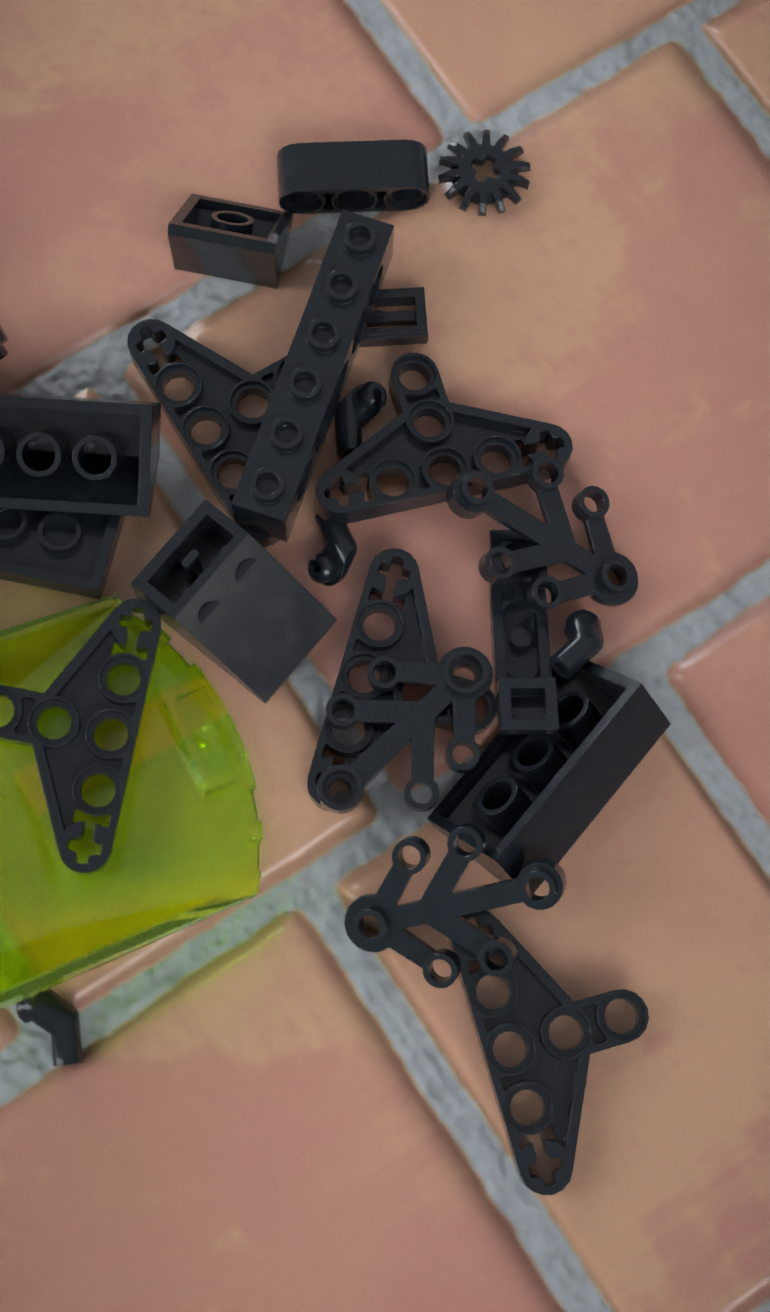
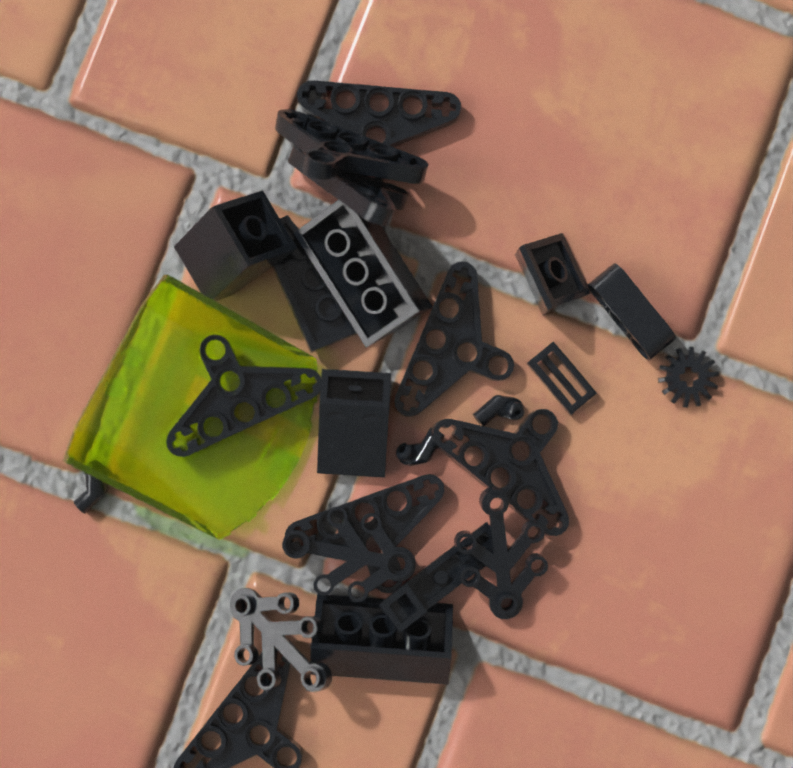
camera: 60 degrees right, 10 degrees up
(313, 376) = (500, 376): black brick -> none
(583, 643) = (459, 612): black arm -> none

